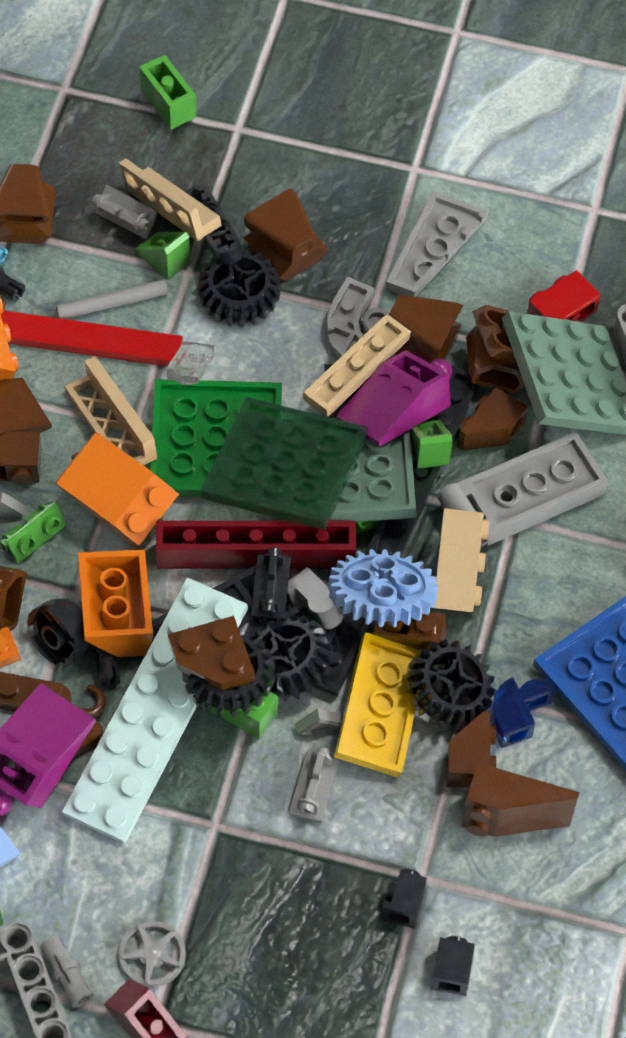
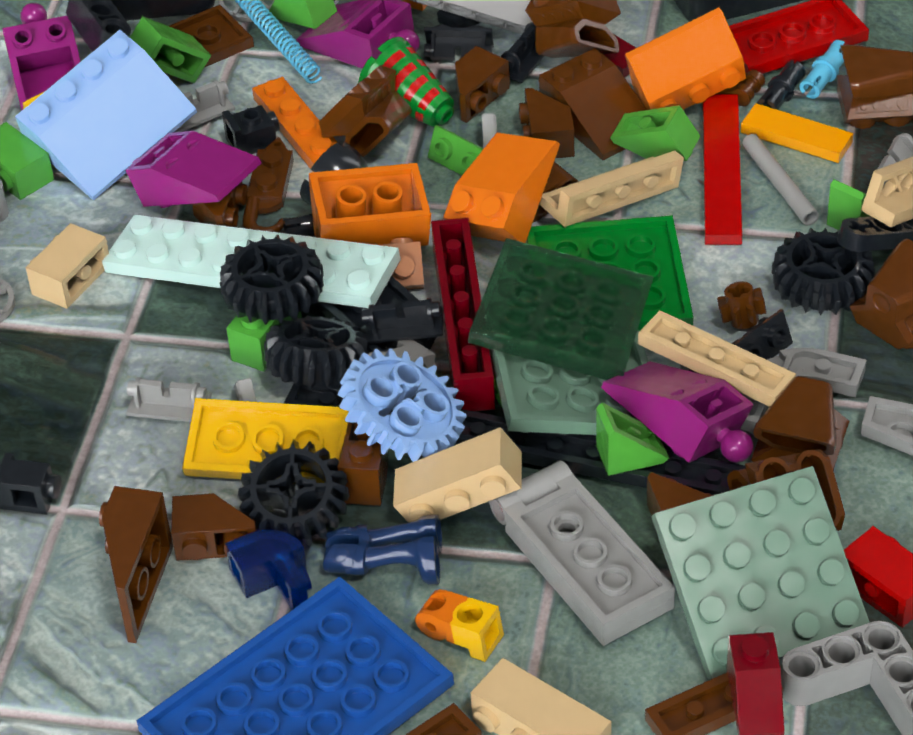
camera: 90 degrees right, 15 degrees down
(48, 376) = (656, 132): none -> bright green slope
(54, 277) = (797, 133): none -> light orange tile
(127, 868) = (67, 265): none -> tan brick
(166, 586) = (409, 269): none -> nougat bracket
(190, 362) = (699, 237): clear plate -> none
(213, 653) = (277, 247): reddish brown plate -> none
(268, 341) = (741, 305): none -> reddish brown gear
(303, 339) = (767, 337): none -> black hinge
(511, 643) = (360, 549): none -> dark blue piece
(583, 580) = (461, 622): none -> leg

